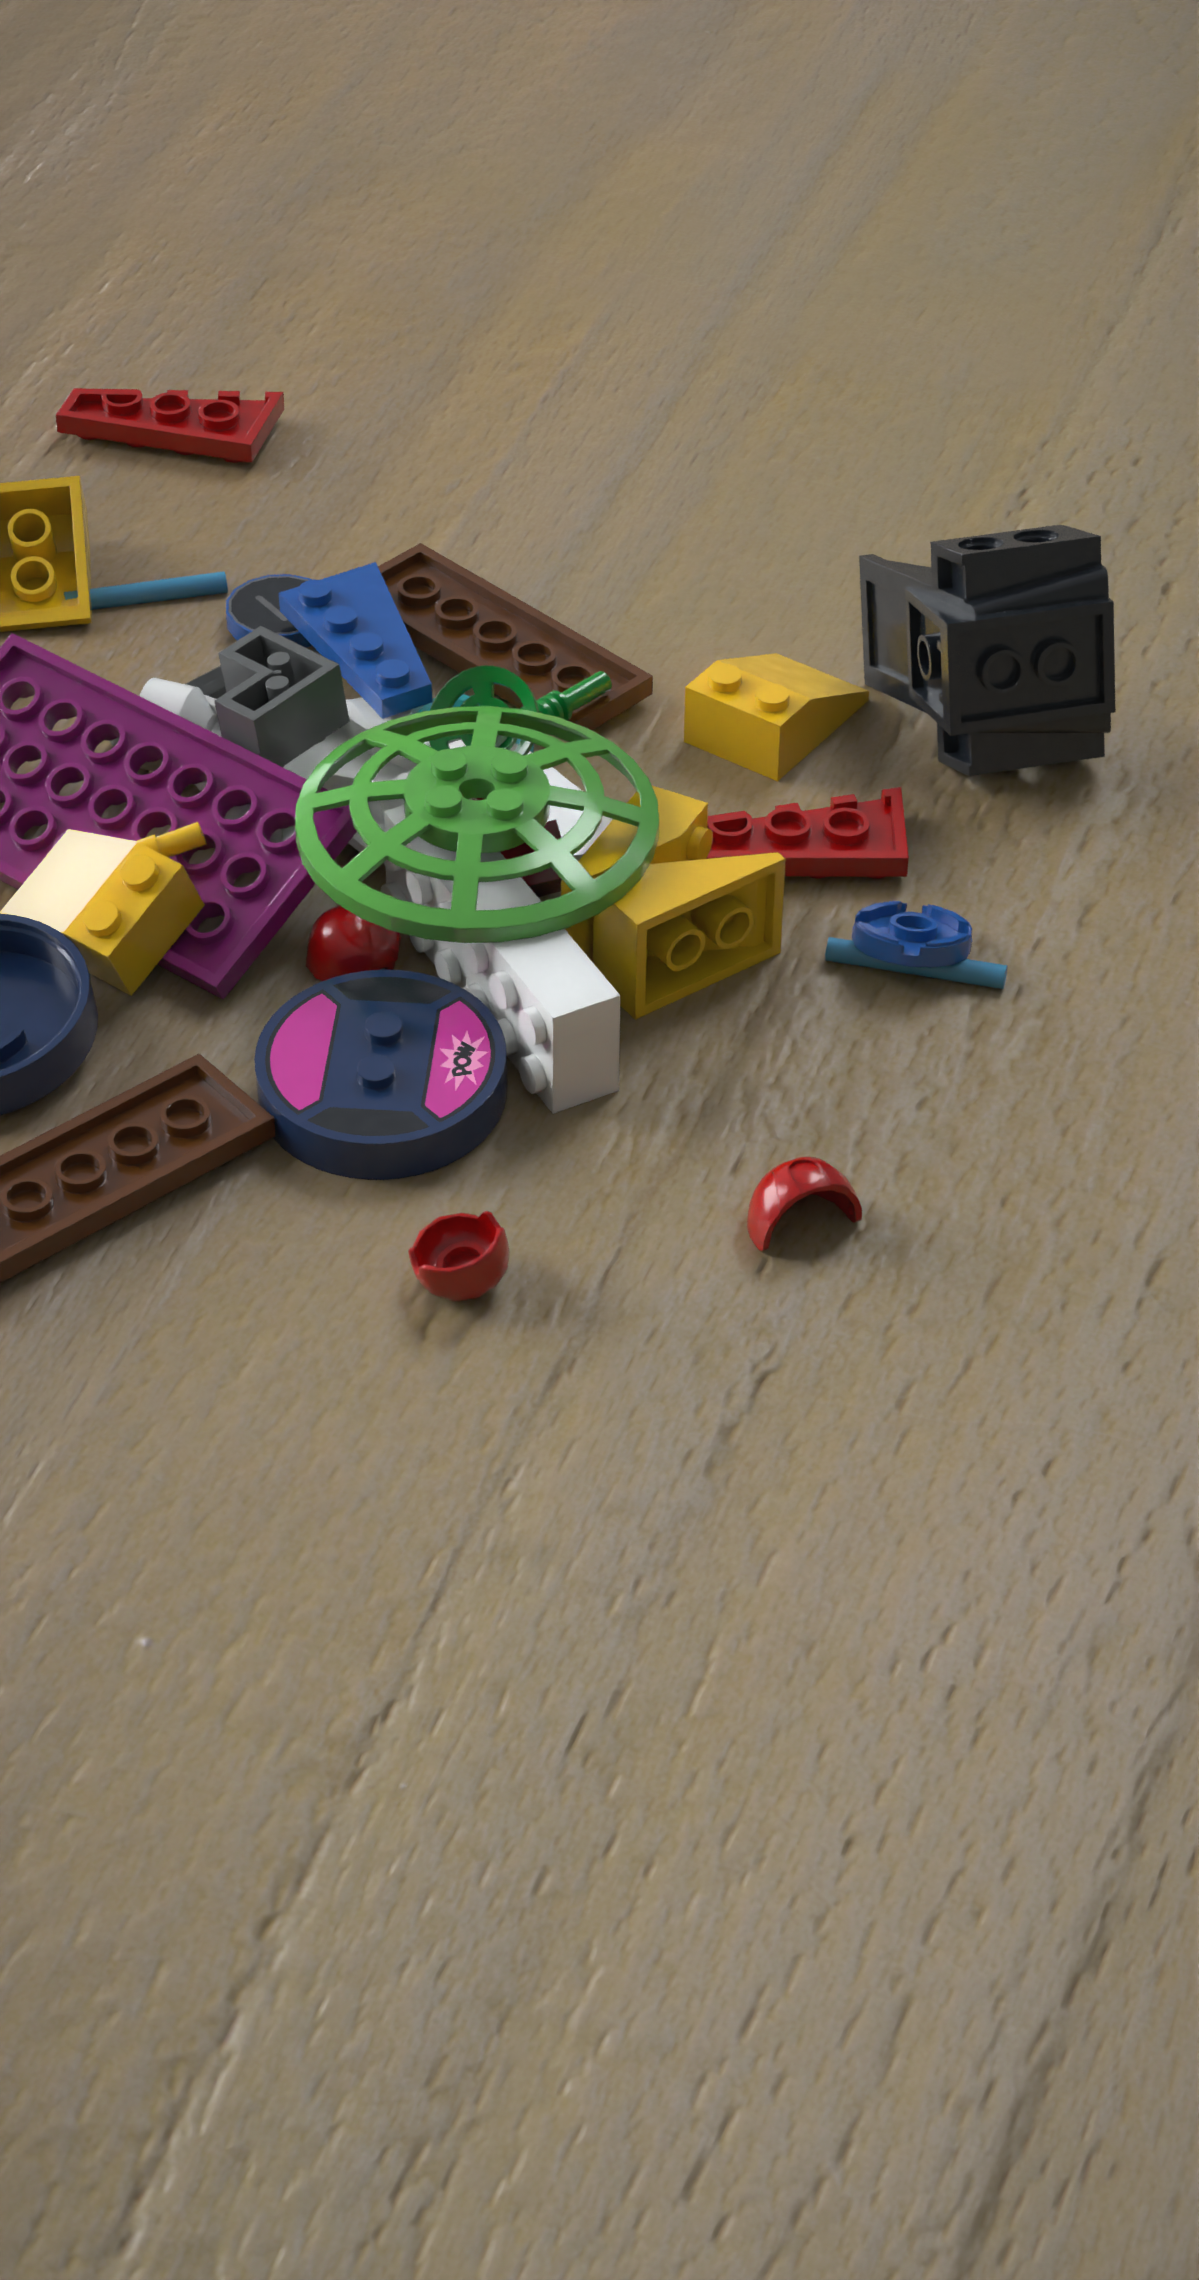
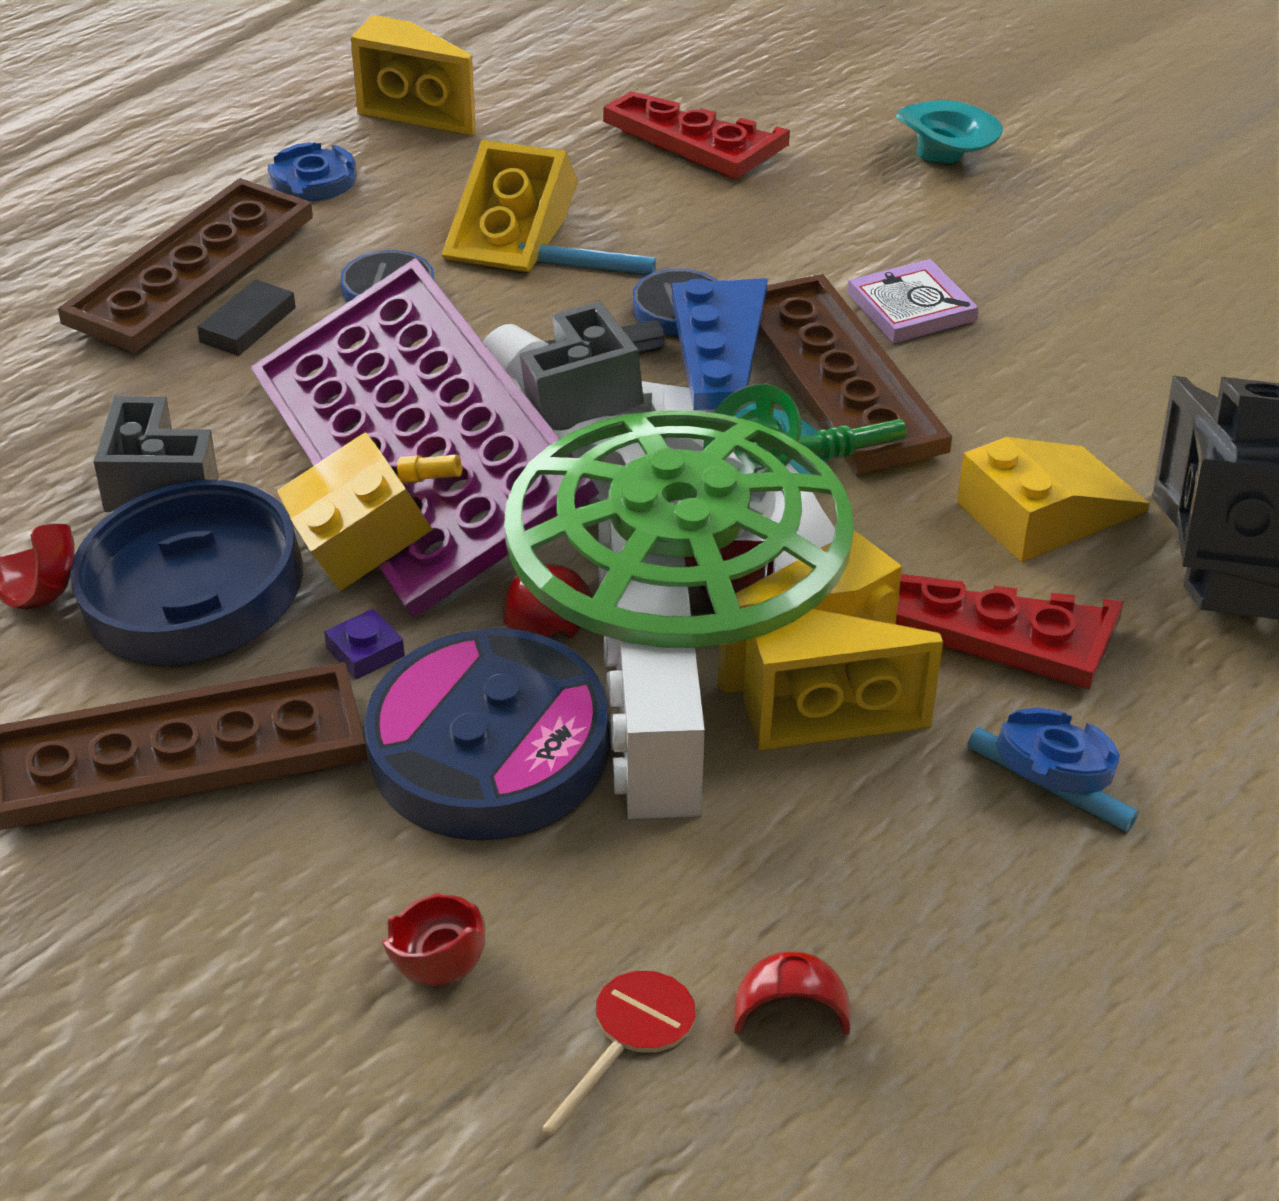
camera: 25 degrees right, 0 degrees up
(193, 1031) = (364, 643): none -> dark purple plate
(456, 349) = (950, 129): none -> teal hat
(522, 549) = (912, 301): none -> tile
(672, 1261) = (637, 1014): none -> red piece

